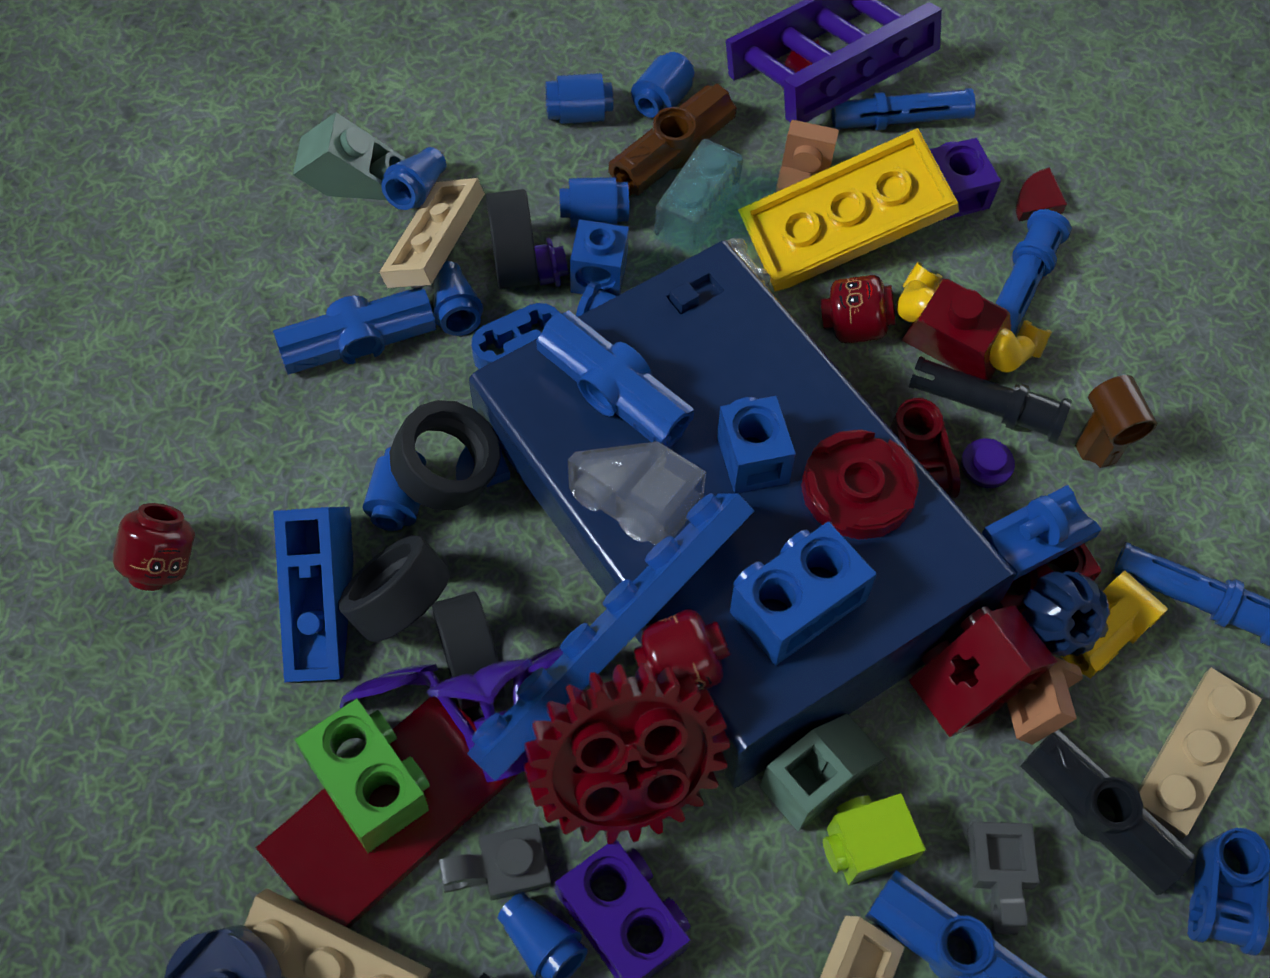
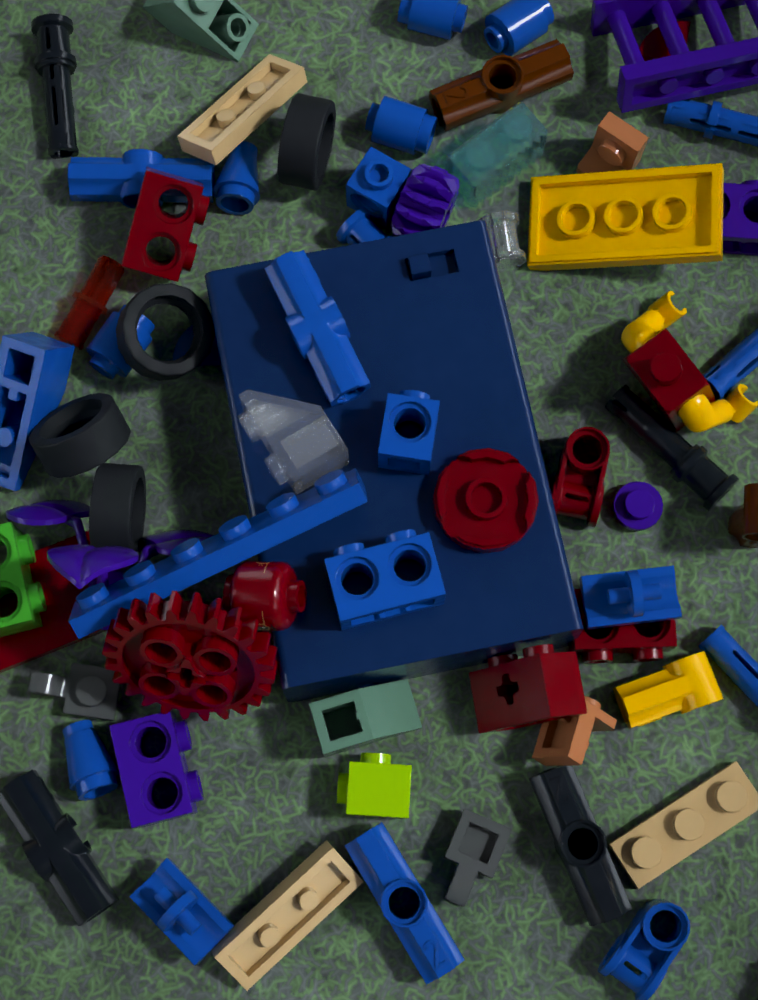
camera: 25 degrees right, 15 degrees up
(215, 240) = (56, 66): none -> black pin
(347, 460) = (90, 302): none -> clear red axle
(385, 354) = (153, 222): none -> dark red brick
(412, 179) = (247, 47): blue cone -> none
(509, 332) = (277, 227): blue beam -> none
(550, 263) = (335, 173): dark purple plate -> none
(652, 248) = (425, 200): none -> dark purple gear
(859, 309) = (591, 319): dark red head -> none
(1067, 612) = (619, 673): dark blue piece -> none

